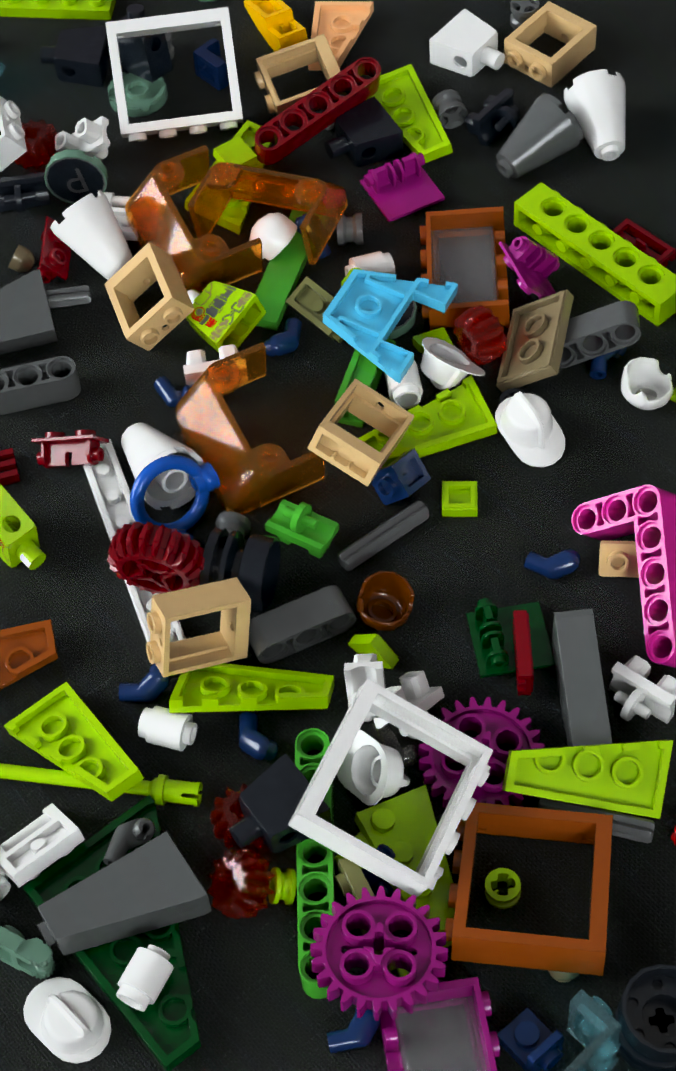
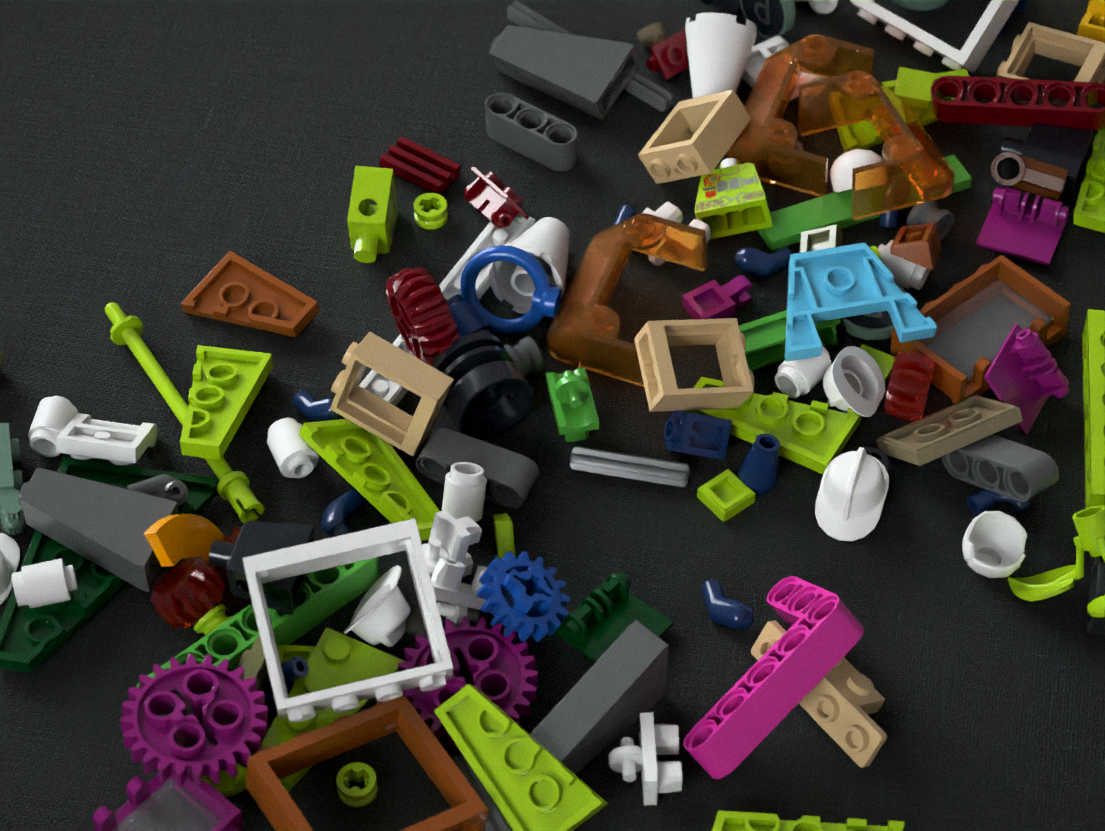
camera: 45 degrees right, 5 degrees down
(34, 504) = (430, 211): none -> lime bush
(198, 852) = (182, 537): none -> light orange tile
(294, 391) = (717, 301): none -> magenta plate
(322, 646) = (464, 491): none -> white brick
(356, 1035) = (123, 767): dark blue arm -> none
(373, 245) = (918, 244): none -> dark orange slope
(376, 150) = (1033, 176): none -> reddish brown piece
(385, 600) = (555, 508): reddish brown hair -> none
(453, 669) = (523, 596): none -> blue gear
(463, 458) = (760, 465): none -> dark blue cone
(523, 652) = (594, 638): dark red tile -> none

